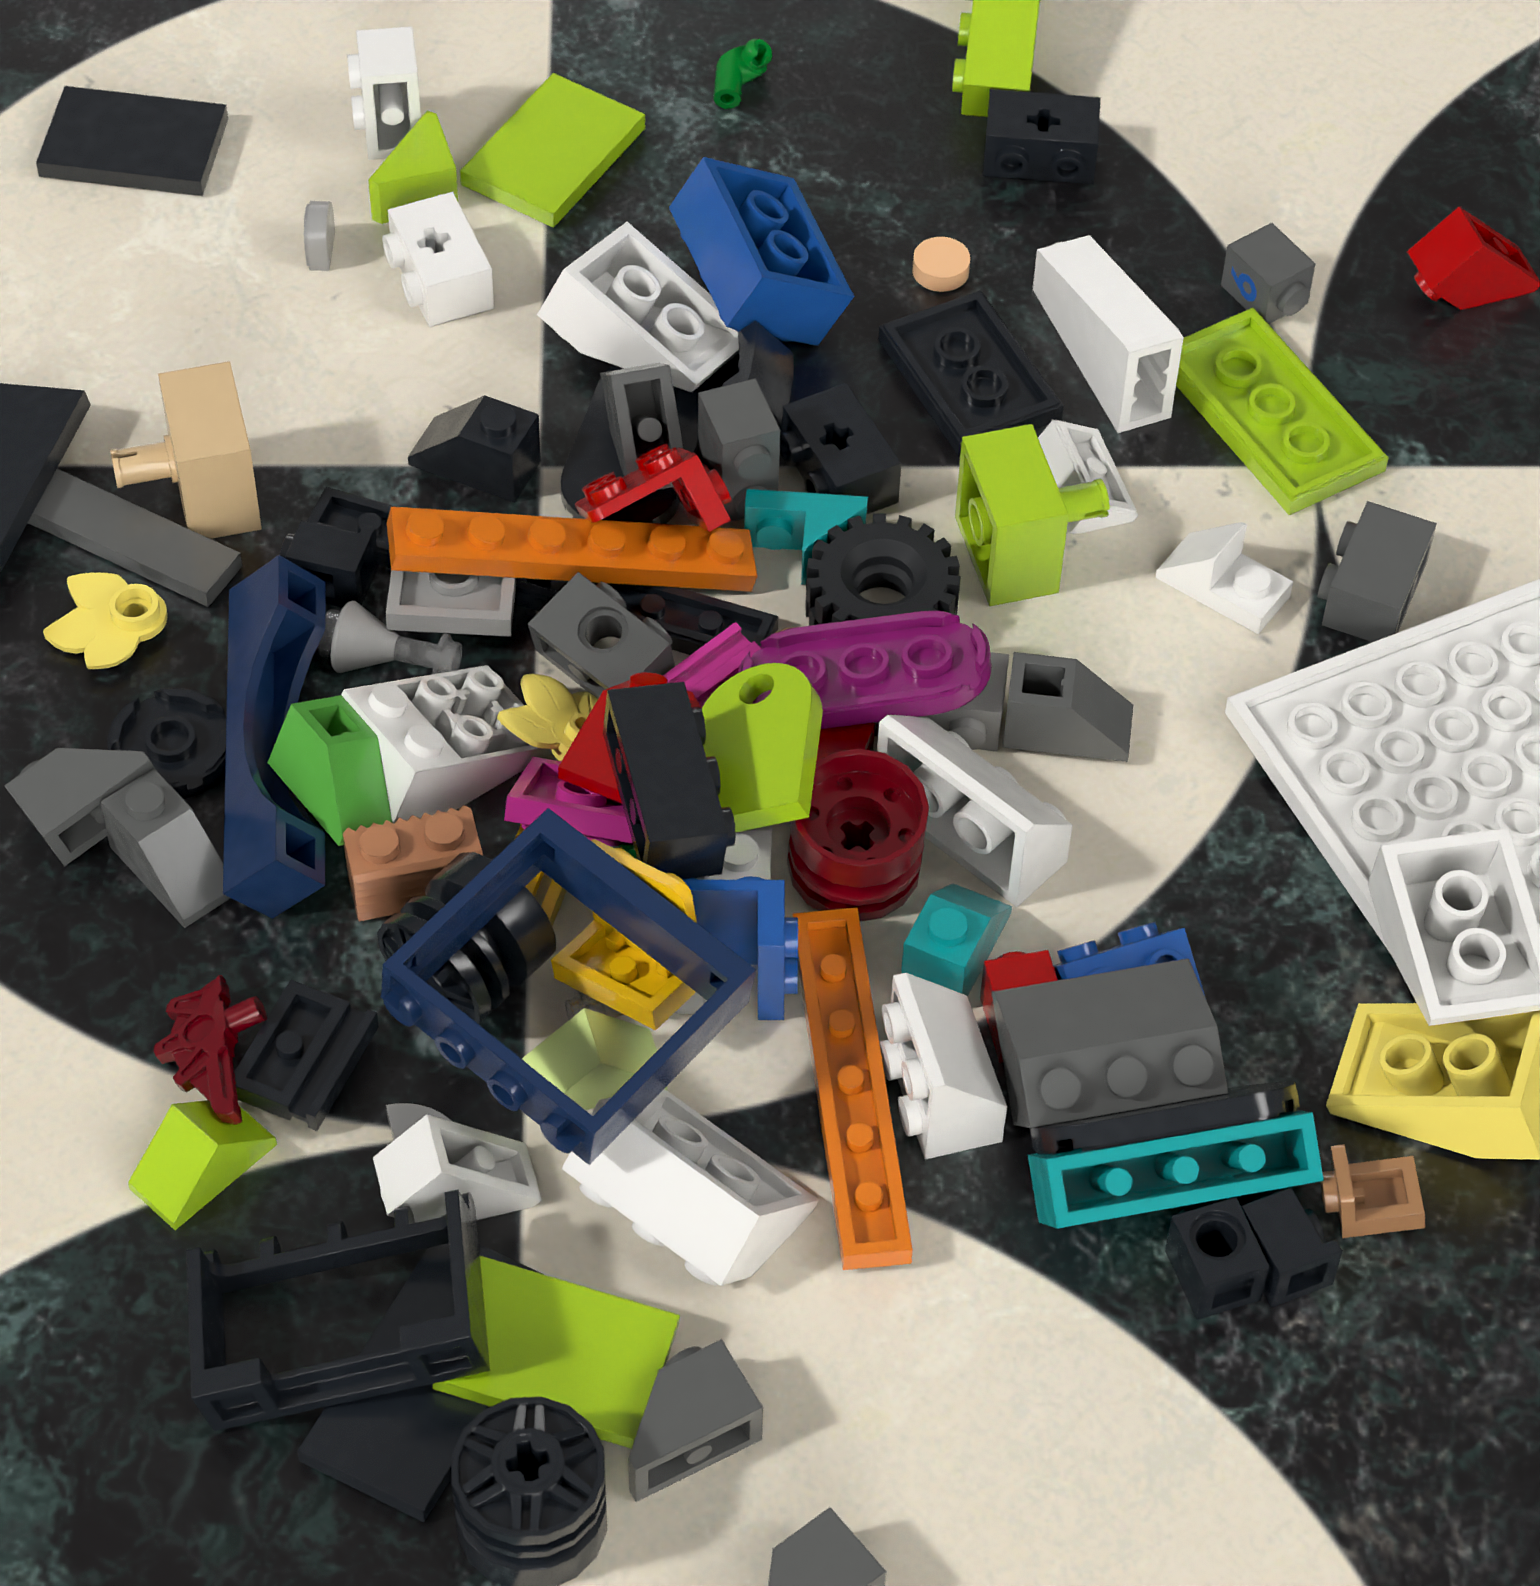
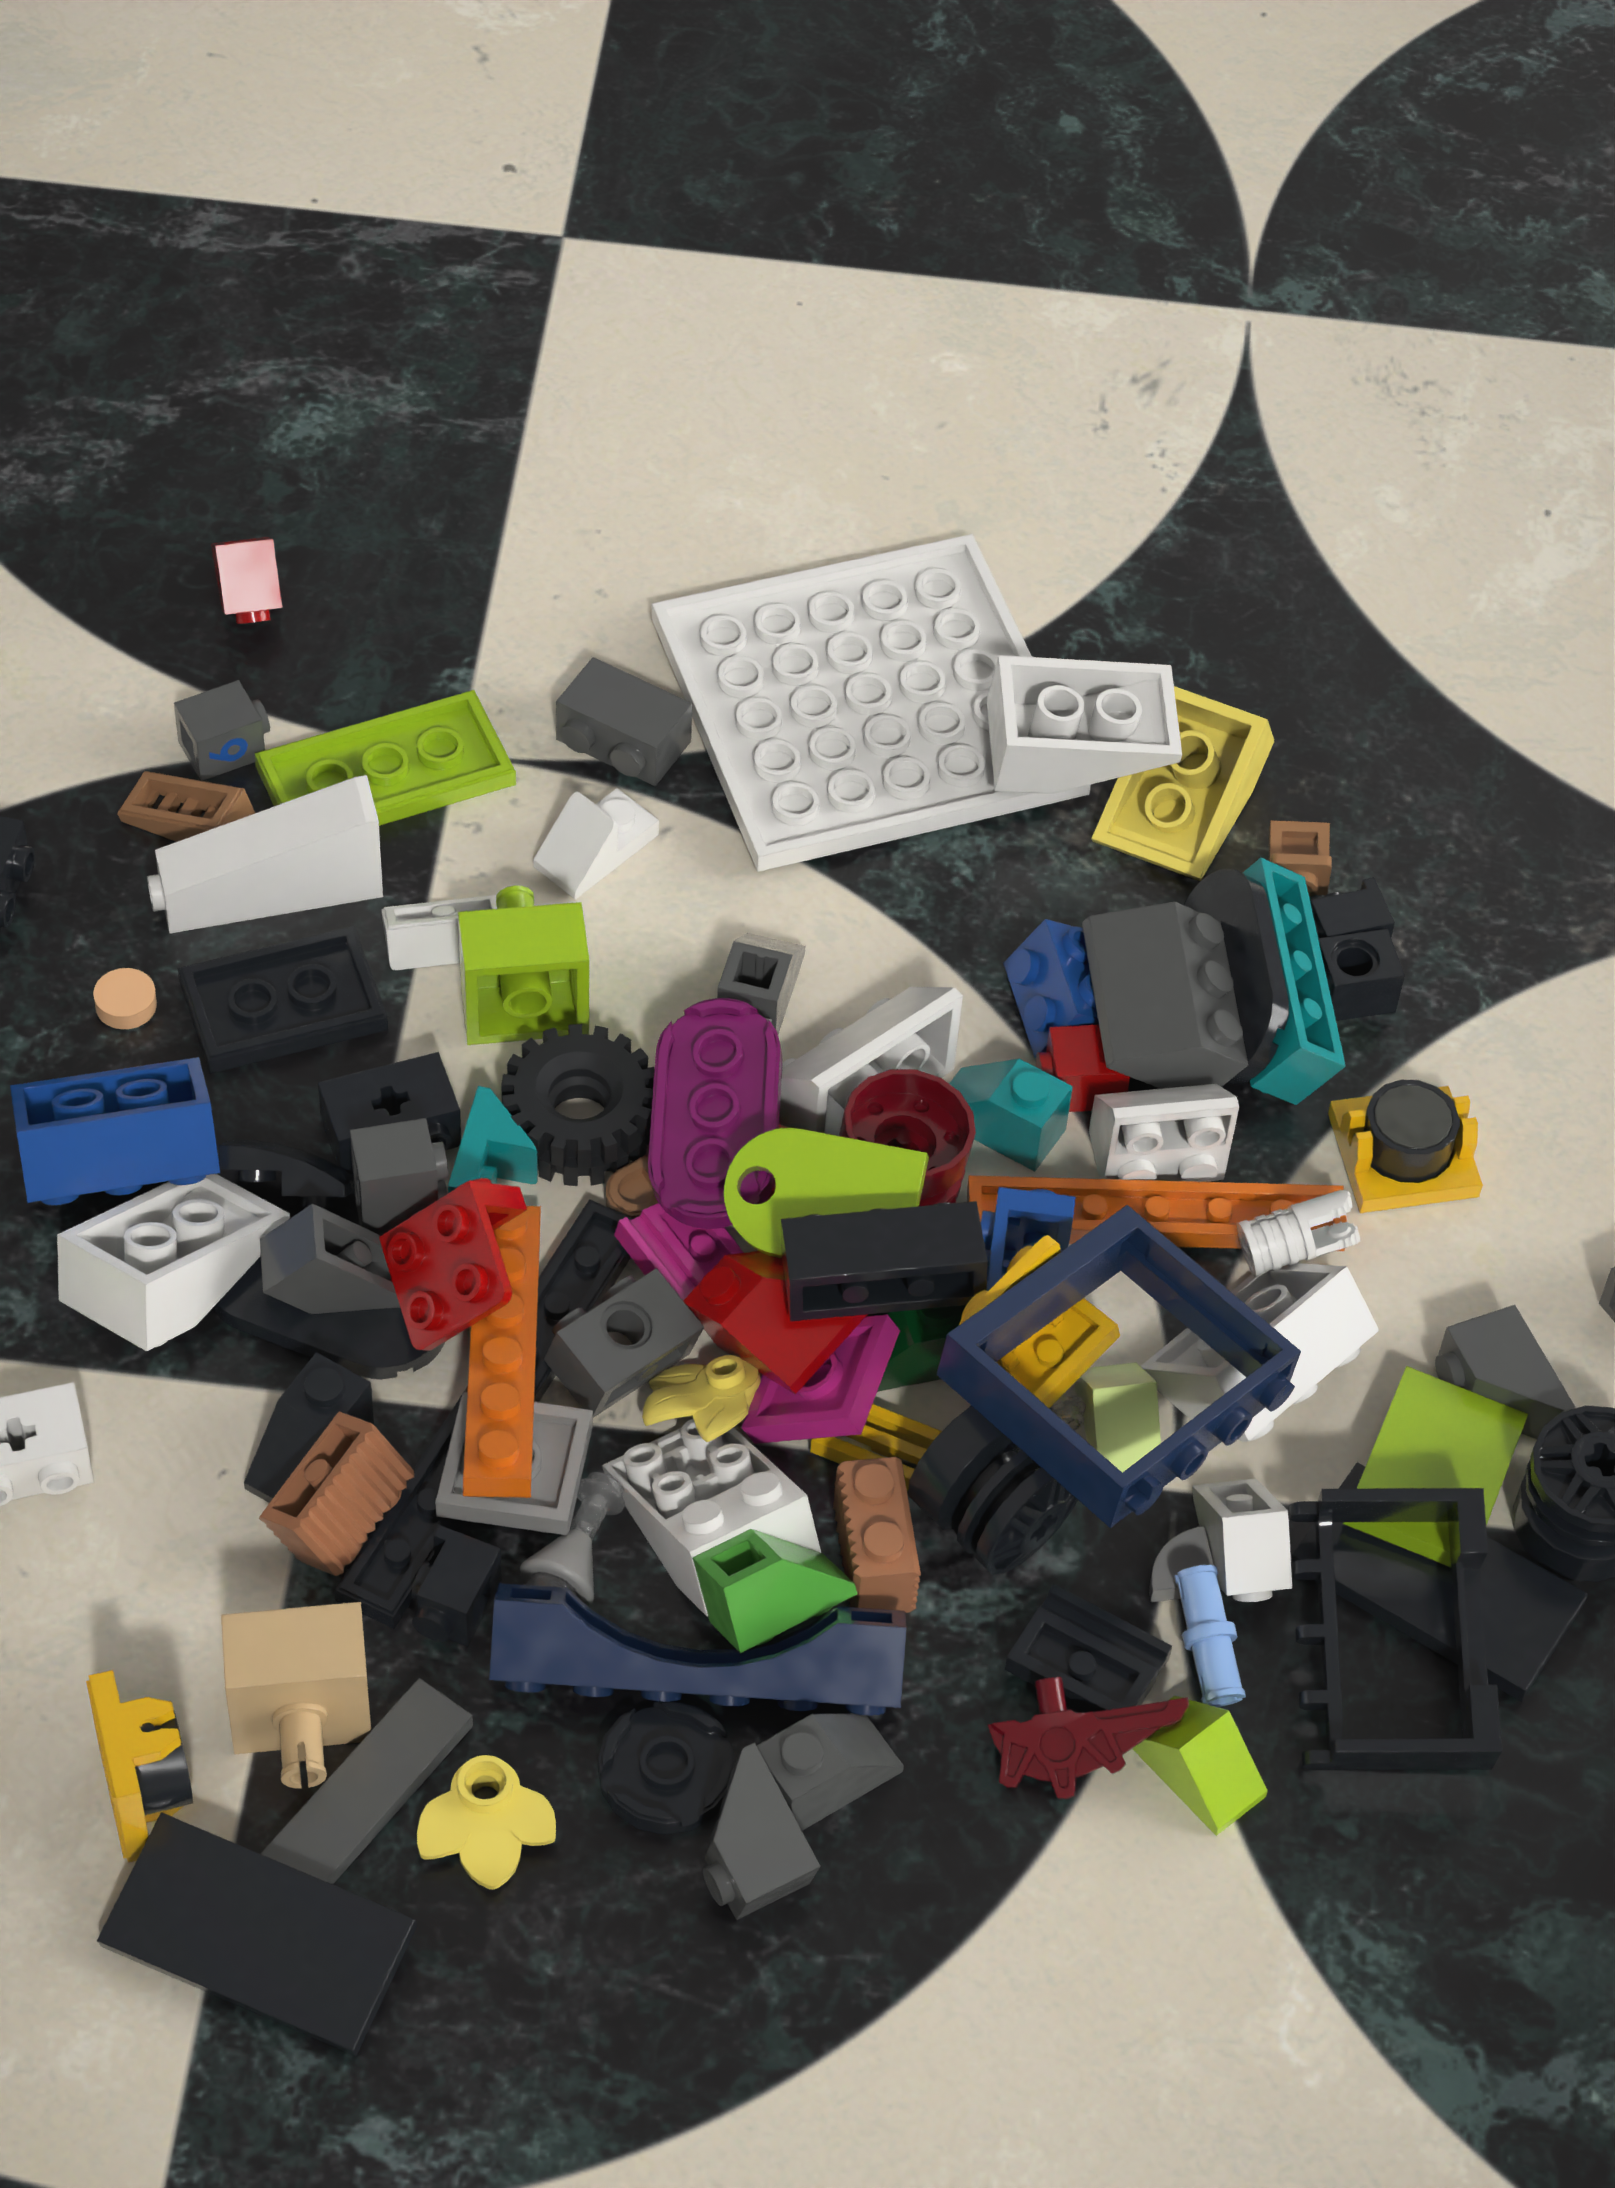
camera: 85 degrees left, 0 degrees up
(118, 355) = (140, 1760): none -> yellow piece
(329, 1152) = (1209, 1635): none -> light blue pin
(402, 457) = (337, 1494): none -> nougat brick
(820, 1190) = (1287, 1234): none -> white hinge
(992, 1321) = (1402, 1143): none -> piece
(1172, 279) = (221, 803): none -> medium nougat slope

